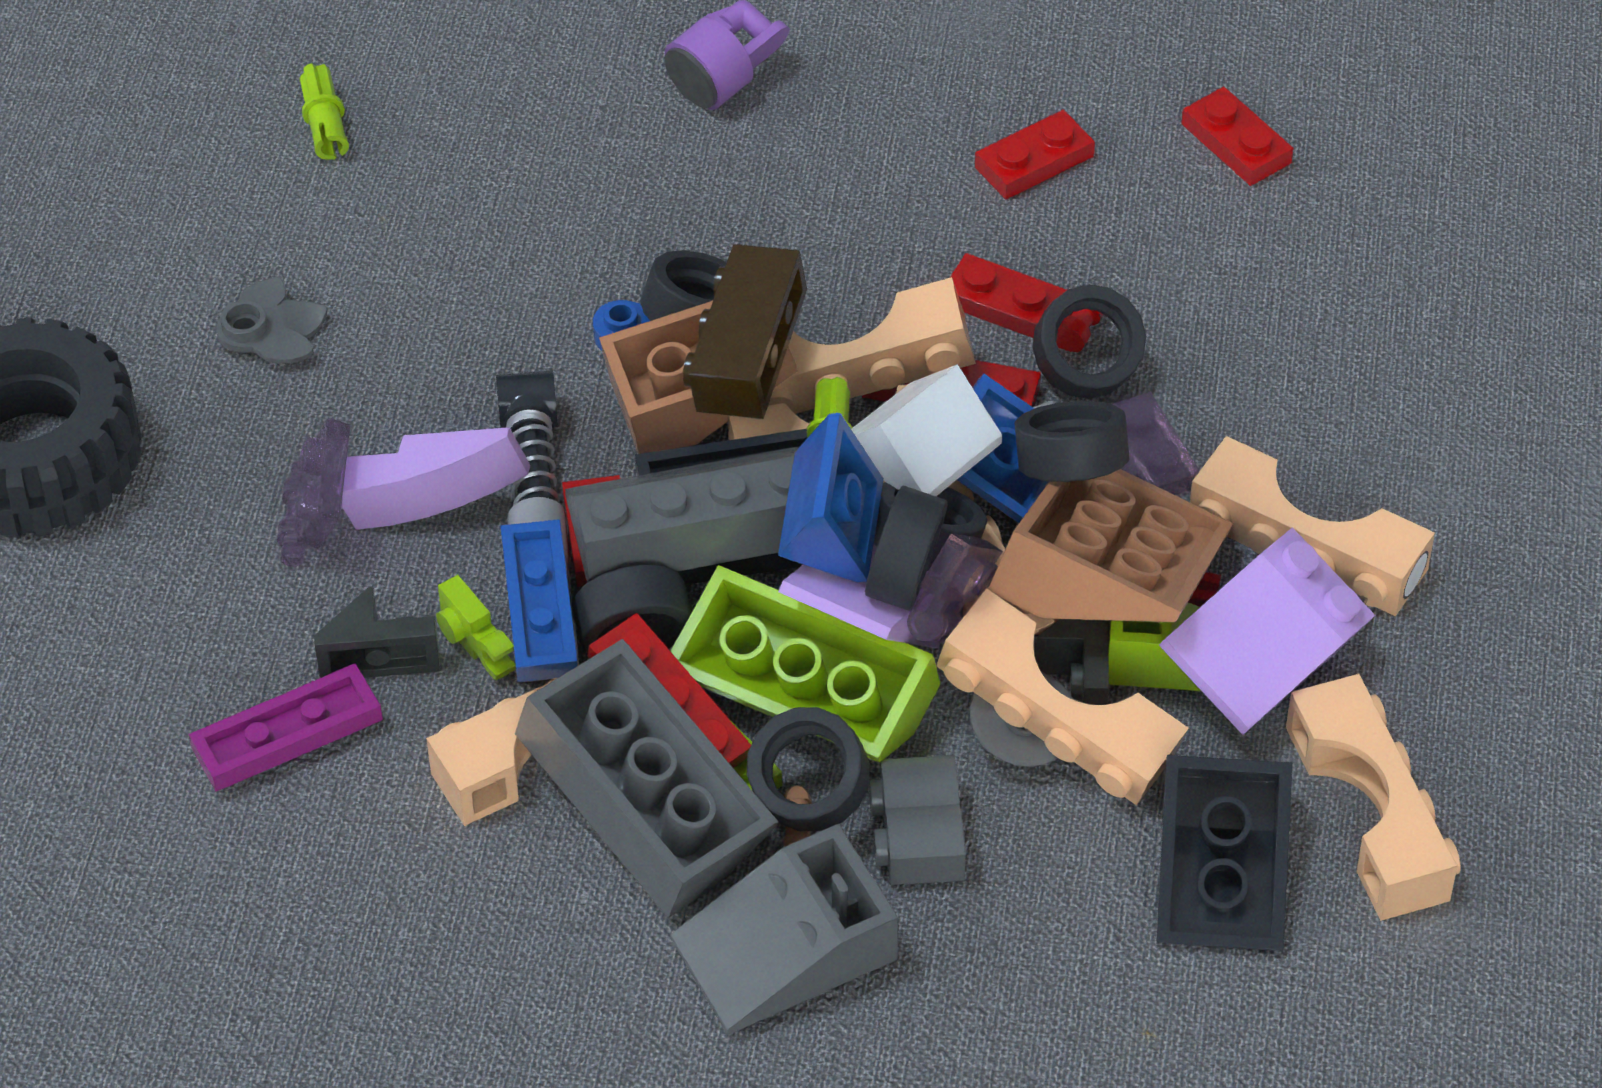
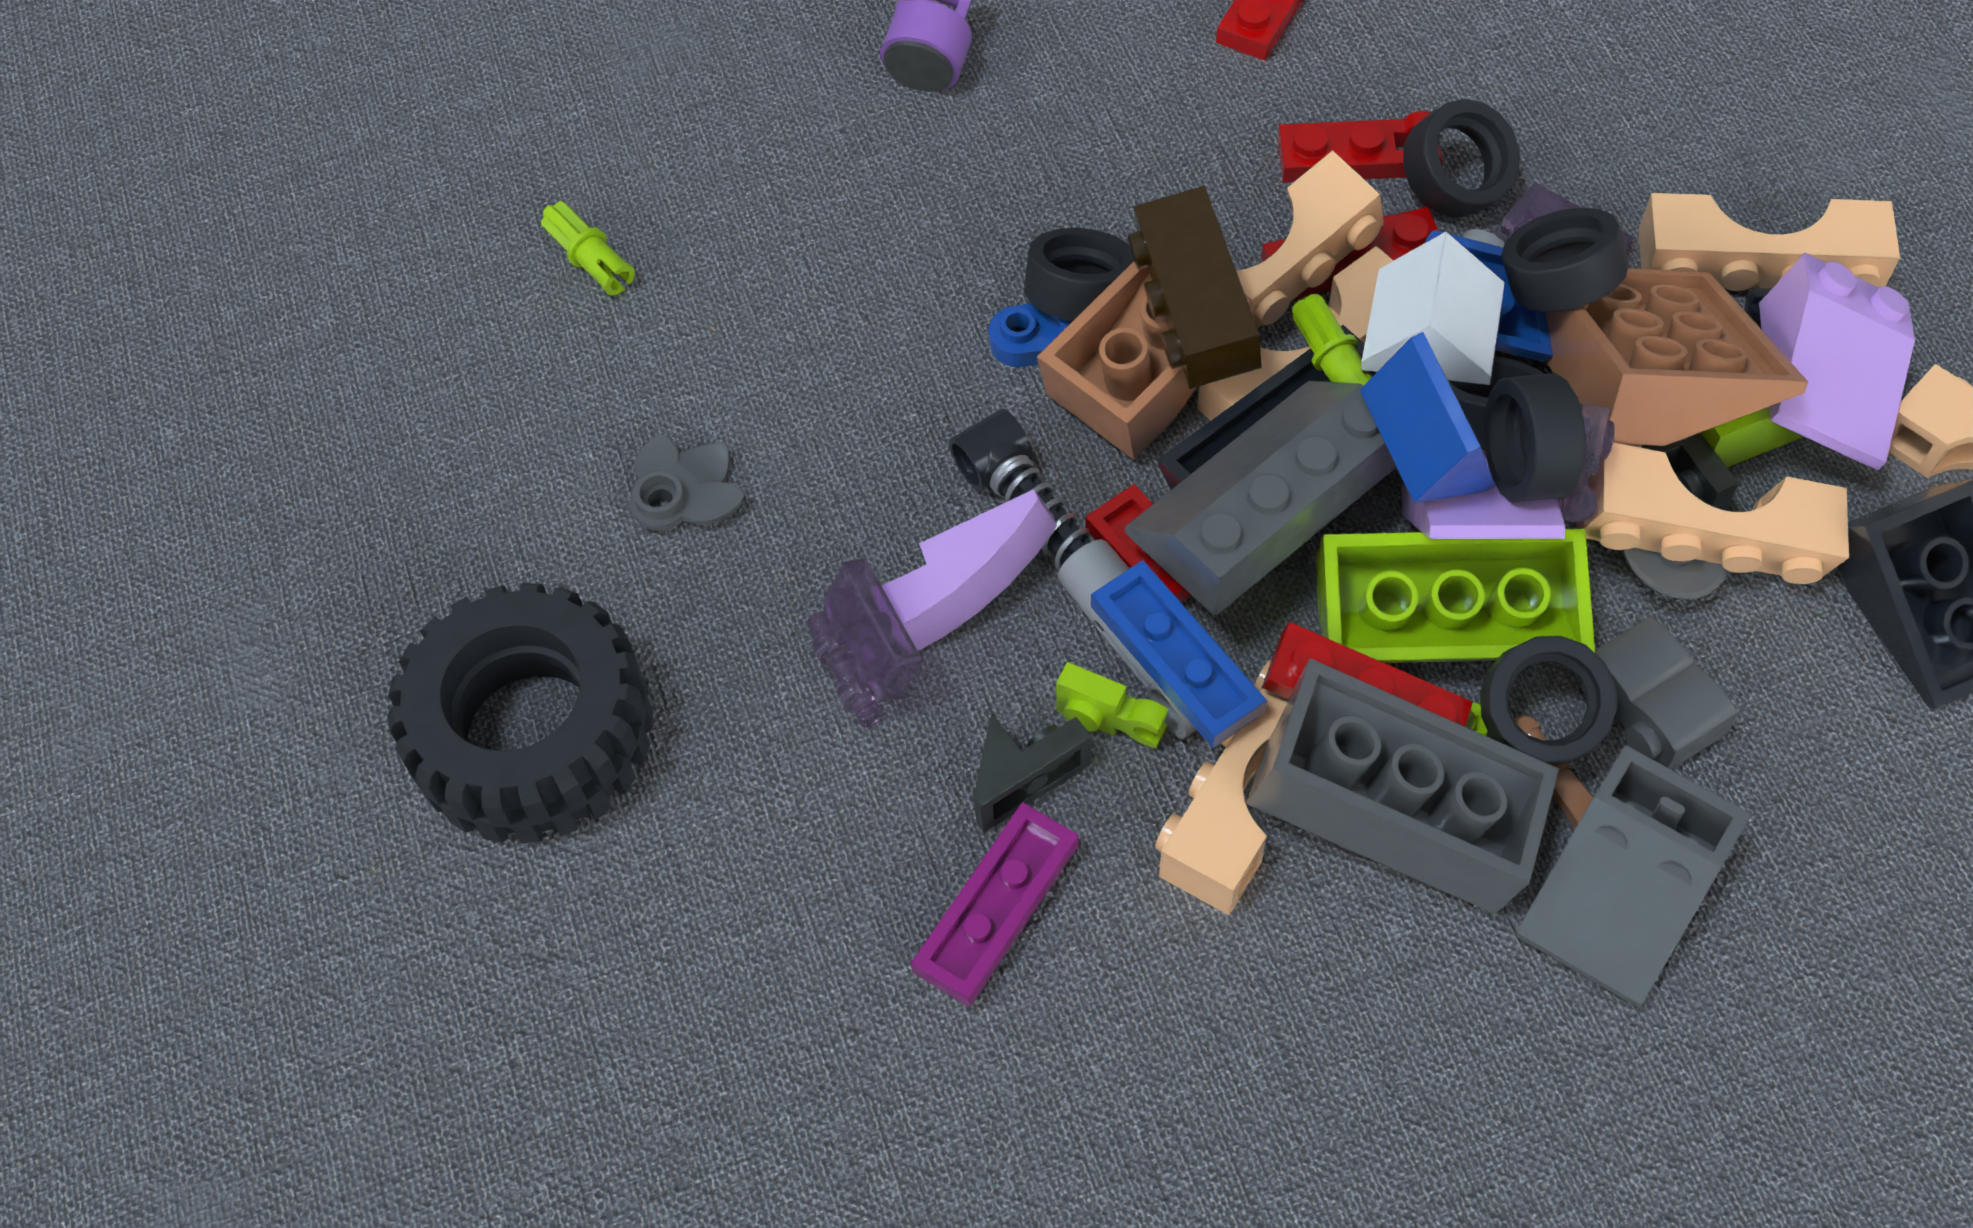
camera: 25 degrees left, 10 degrees up
(649, 590) = (1257, 616): black tyre -> none

